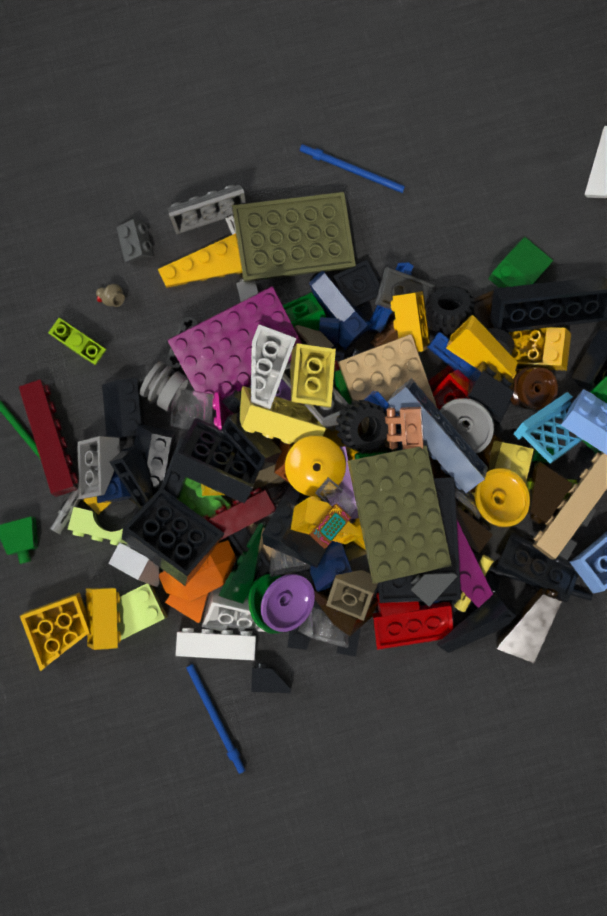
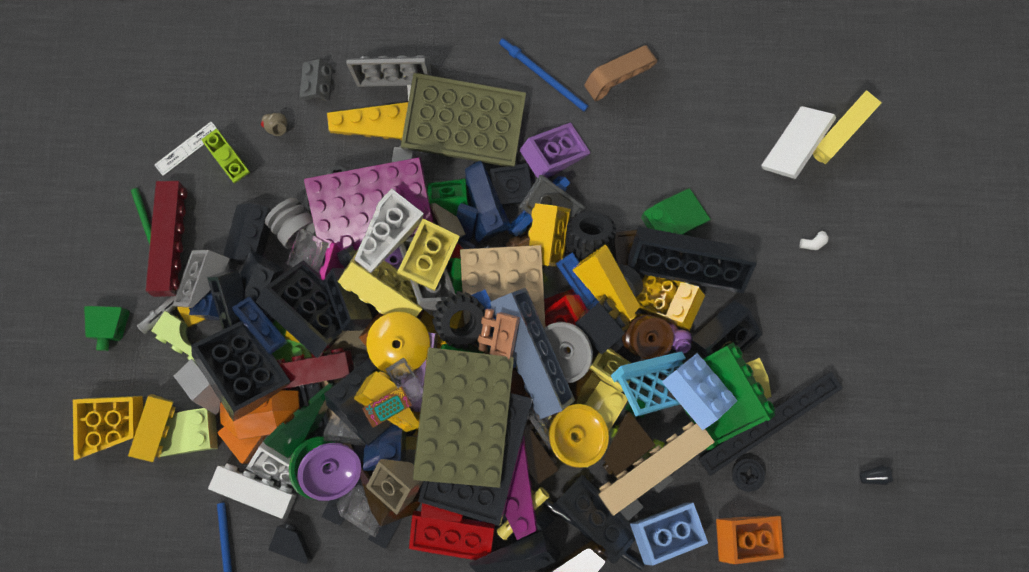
camera: 25 degrees right, 5 degrees down
(32, 345) = (184, 150): none -> white sticker
(175, 490) = (259, 325): none -> dark blue tile
(387, 239) = (554, 150): none -> medium lavender slope
(424, 144) = (618, 71): none -> medium nougat beam
(431, 585) = (472, 501): dark grey slope -> none
(506, 426) = (606, 364): none -> light yellow slope
(564, 381) = (681, 340): none -> medium lavender animal

